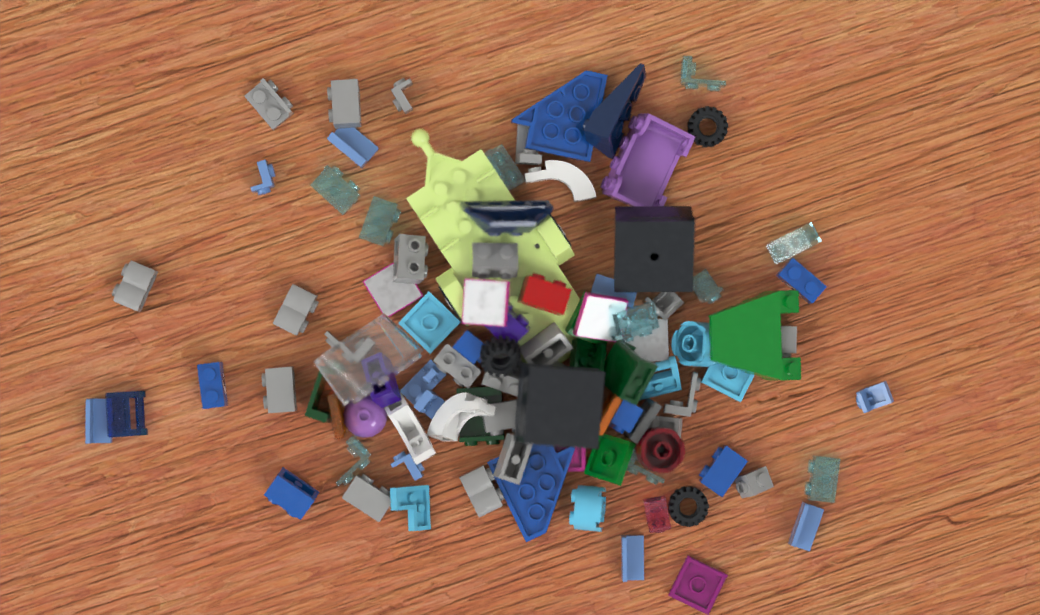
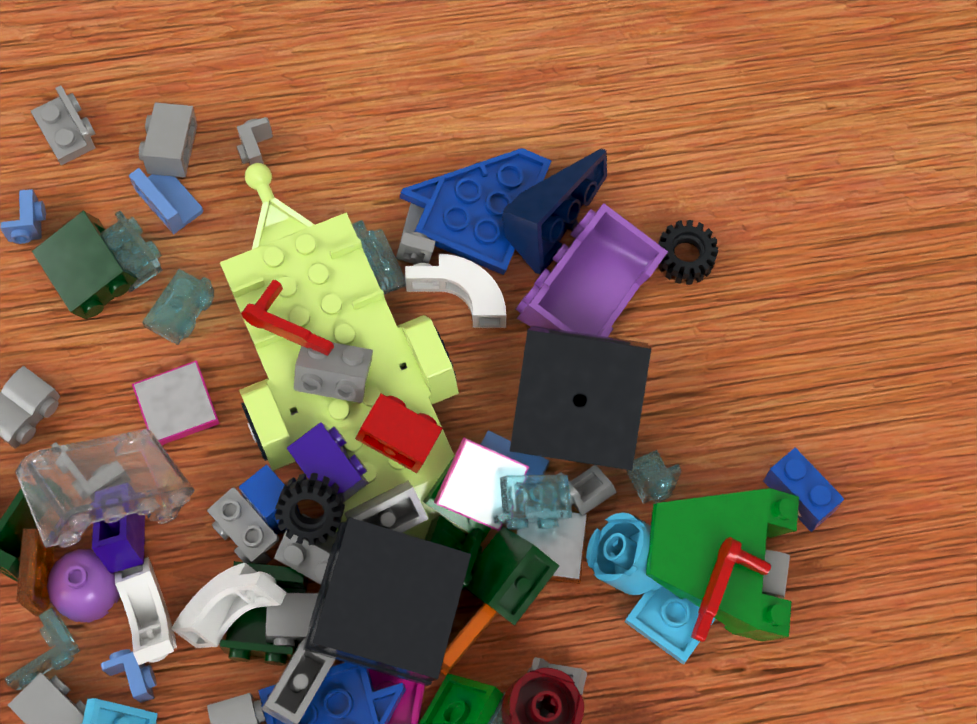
camera: 10 degrees right, 20 degrees down
(312, 208) = (83, 266): none -> dark green panel
(410, 259) = (208, 360): light grey brick -> none
(425, 379) = (186, 551): medium blue hinge -> none
(428, 403) = (184, 577): medium blue bracket -> none
(429, 322) = (217, 459): medium azure plate -> none
(441, 235) = (260, 318): none -> red piece
(485, 302) = (303, 422): flat silver tile -> none
(507, 216) = (361, 304): dark blue wedge -> none
(625, 417) = (492, 646): blue brick -> none
(650, 410) = (522, 659): dark grey tile -> none
(665, 381) = (561, 610): medium azure plate -> none
(677, 408) = (580, 654): light grey bracket -> none
(688, 68) = (676, 190): clear light blue bracket -> none
(758, 341) = (728, 555): none -> red piece
(793, 243) = (796, 430): clear light blue bracket -> none
(874, 397) = (904, 690): medium blue bracket -> none

